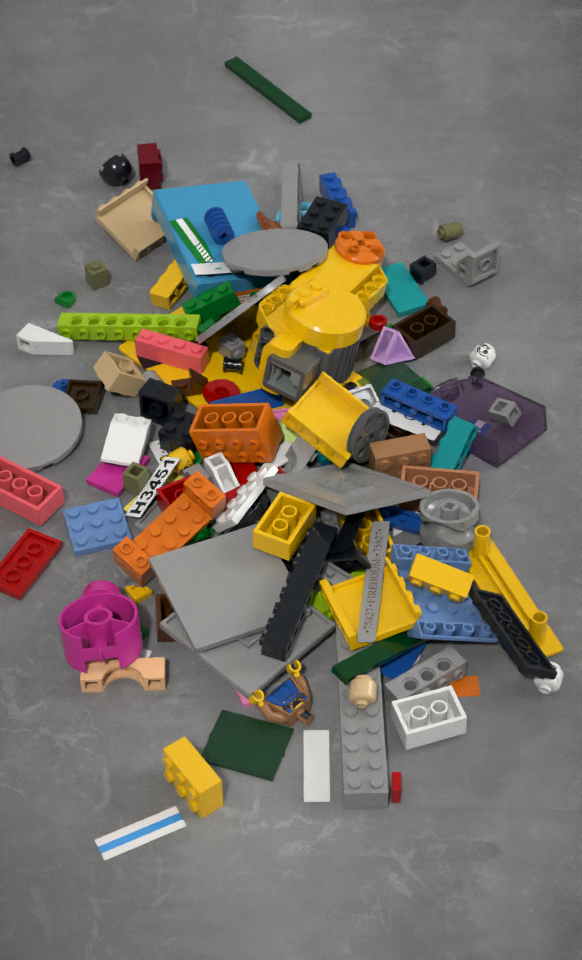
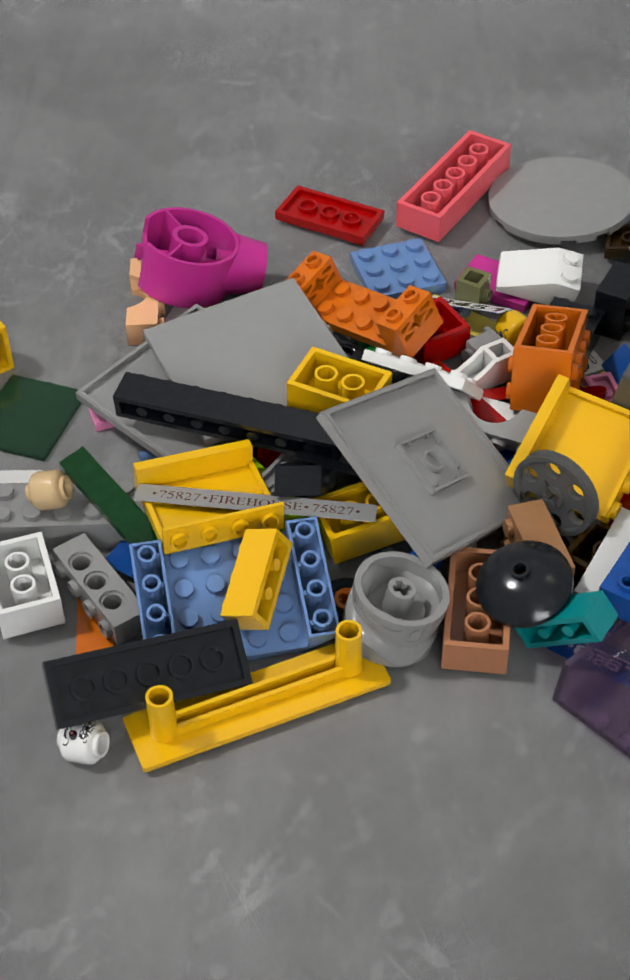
camera: 90 degrees right, 0 degrees up
(288, 701) = (75, 430): torso -> none
(436, 464) = (527, 597): none -> black dish

